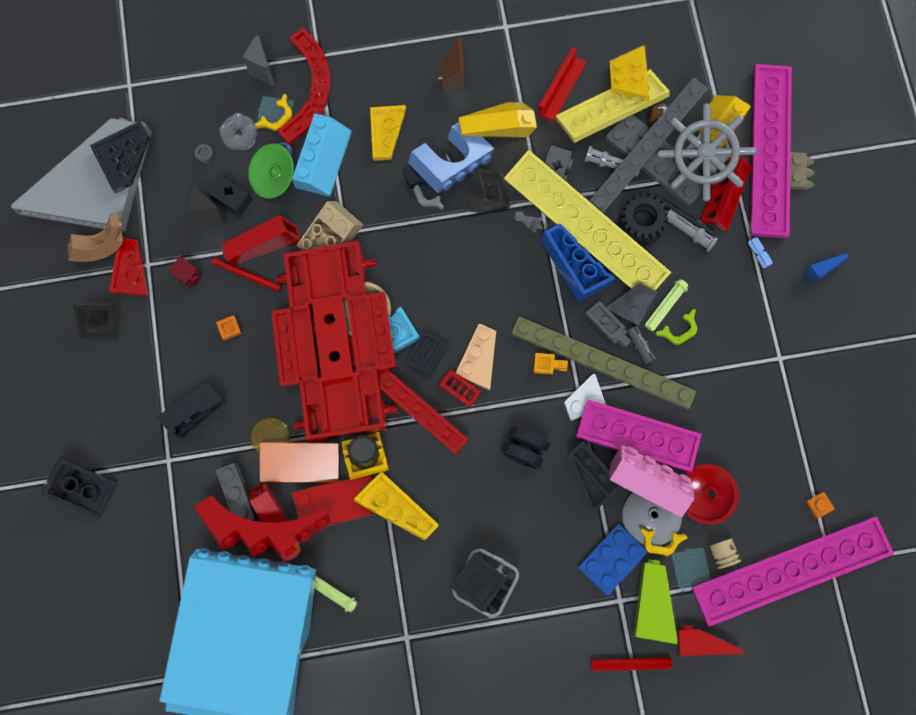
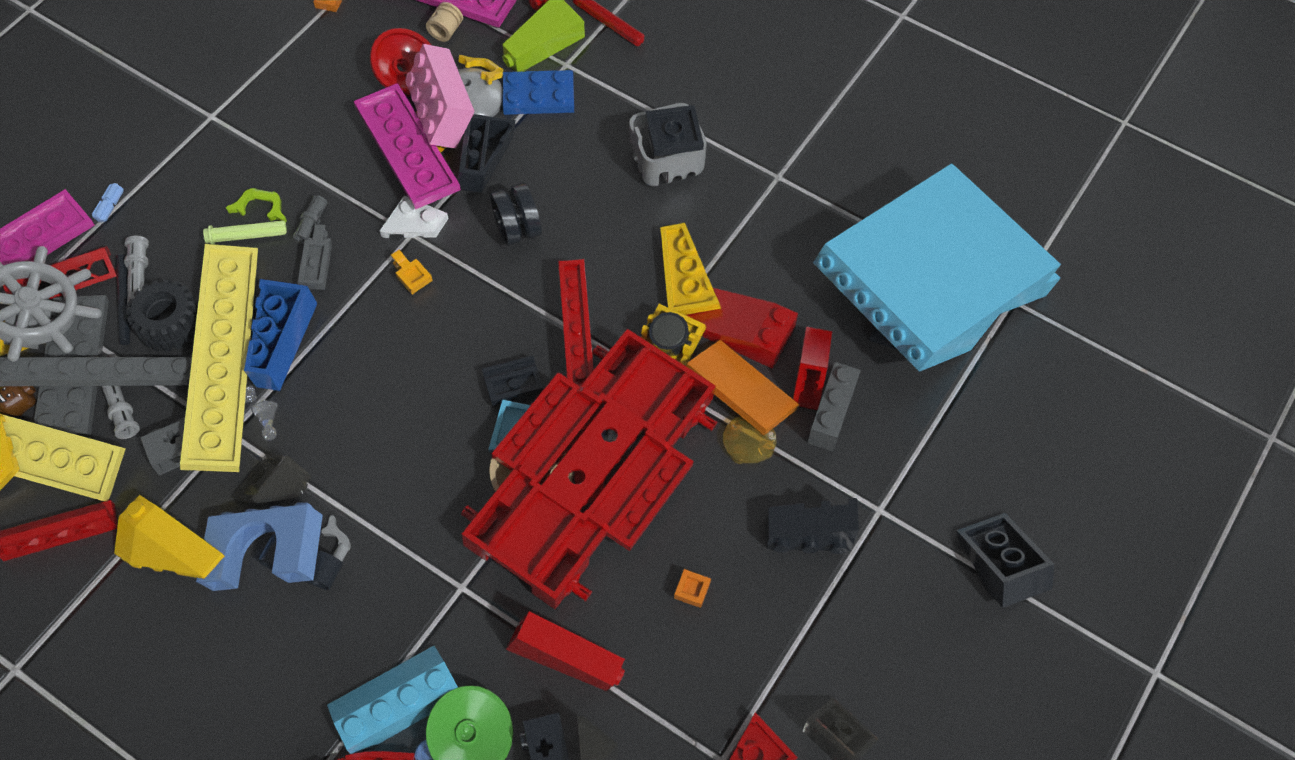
camera: 140 degrees left, 15 degrees down
(185, 272) = (686, 698): dark red brick -> none
(246, 274) = (617, 637): red bar -> none
(257, 536) = (822, 304): red arch -> none
(330, 227) = (477, 594): tan slope -> none
(335, 595) = (807, 235): yellowish green axle -> none
(385, 130) = (285, 668): yellow wing -> none
(453, 68) = (130, 657): reddish brown slope -> none
(456, 378) = (520, 341): red slope -> none
(478, 358) = (466, 337): light nougat wing -> none
(604, 363) = (363, 241): olive plate -> none
(633, 303) = (270, 253): black wing -> none
(690, 567) = (482, 40): clear light blue piece -> none
(820, 269) = (74, 140): blue slope -> none

